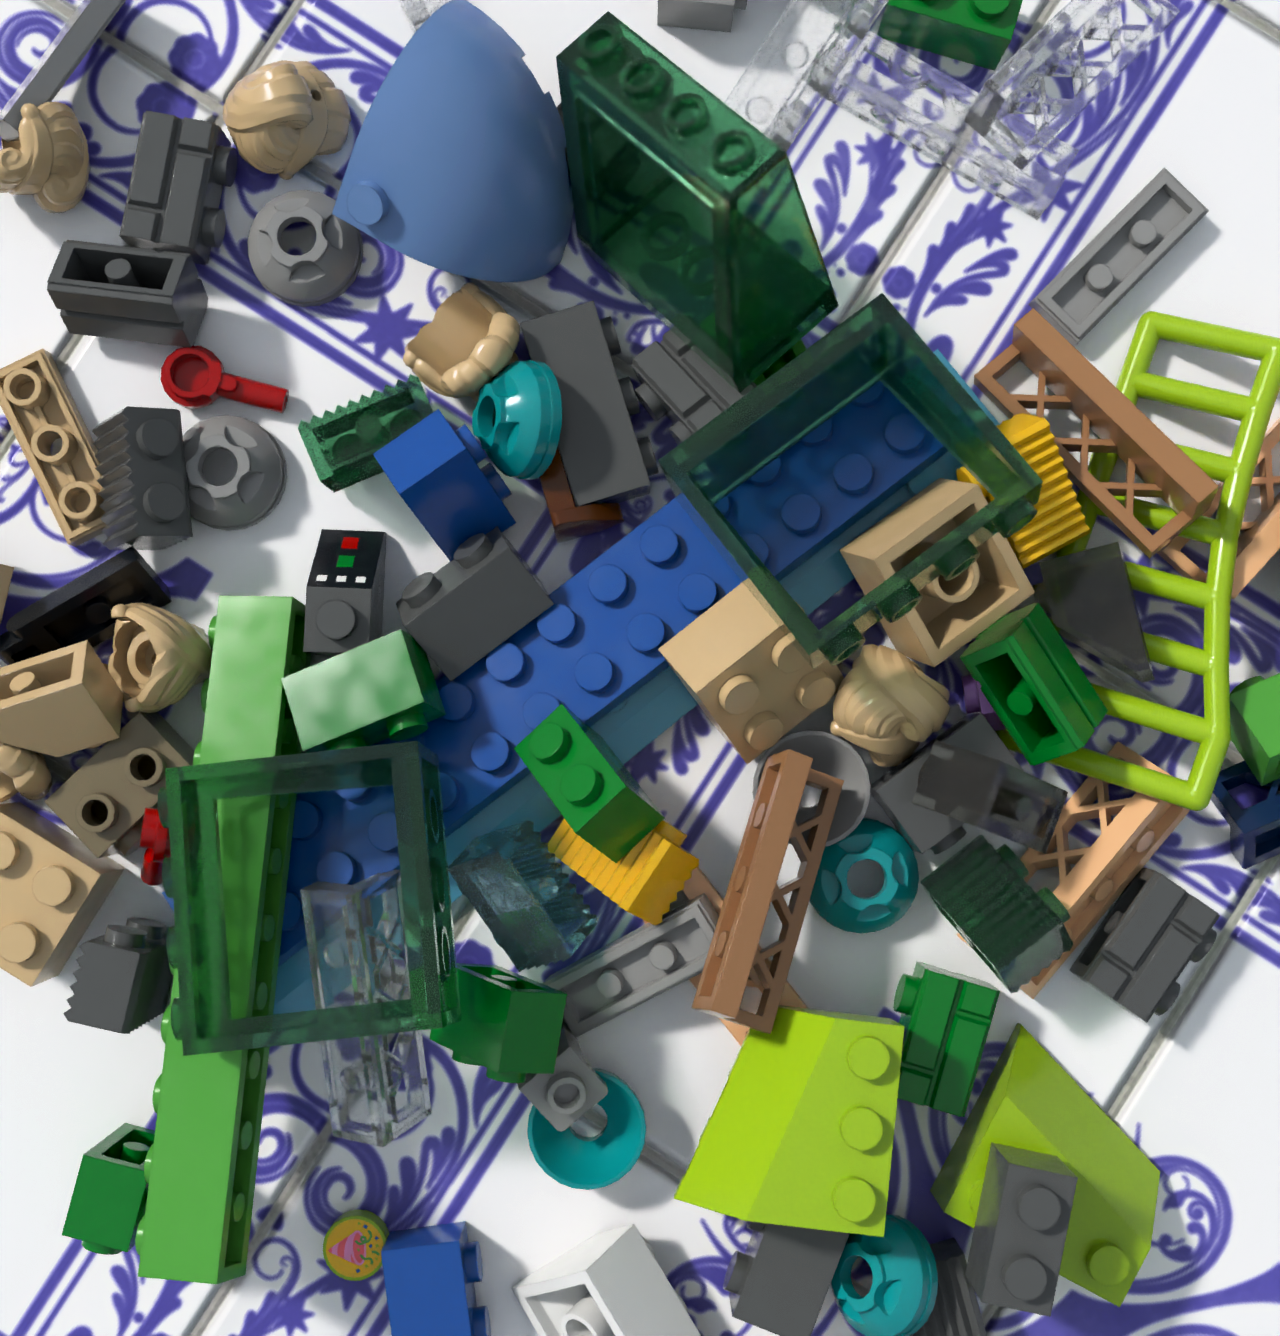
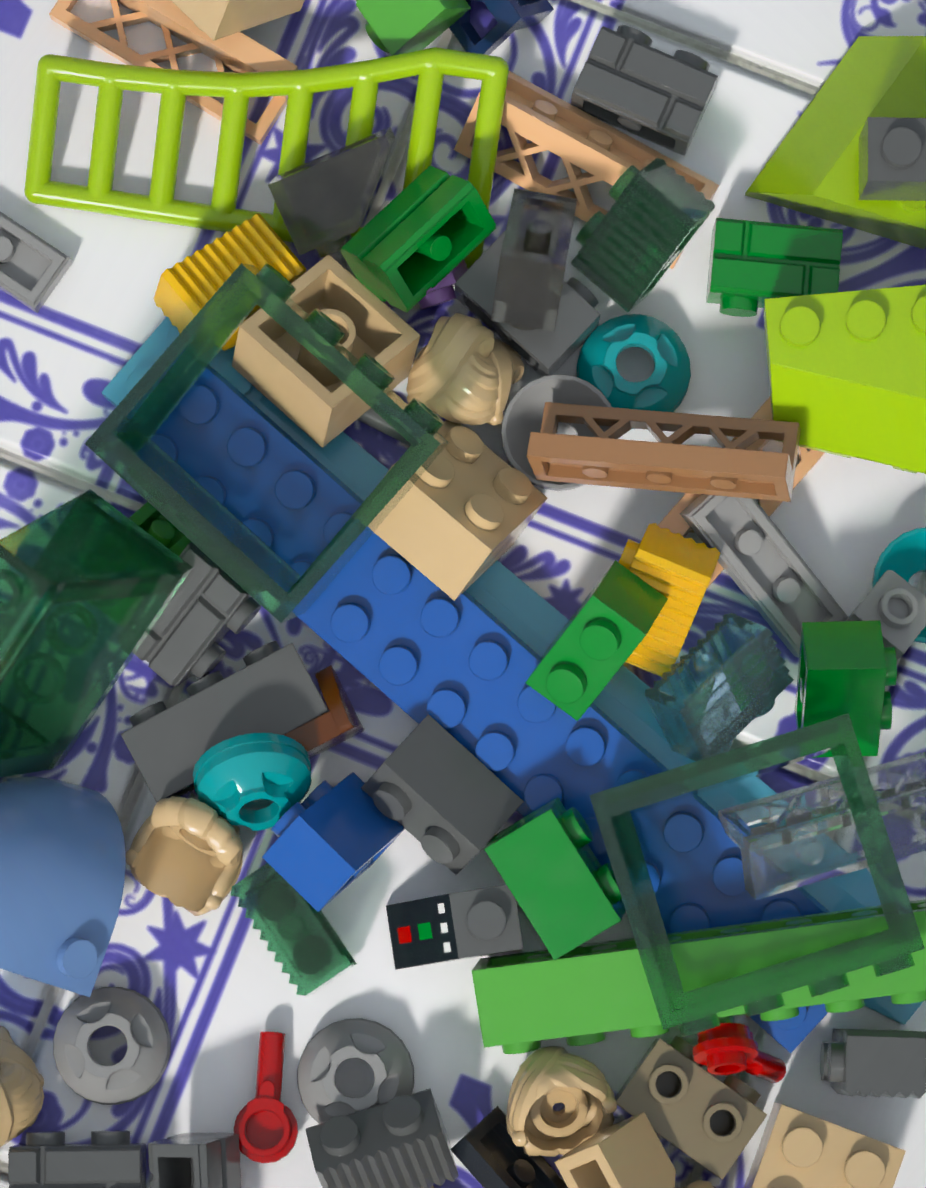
camera: 100 degrees left, 5 degrees down
(1114, 420) = (145, 211): medium nougat fence -> none

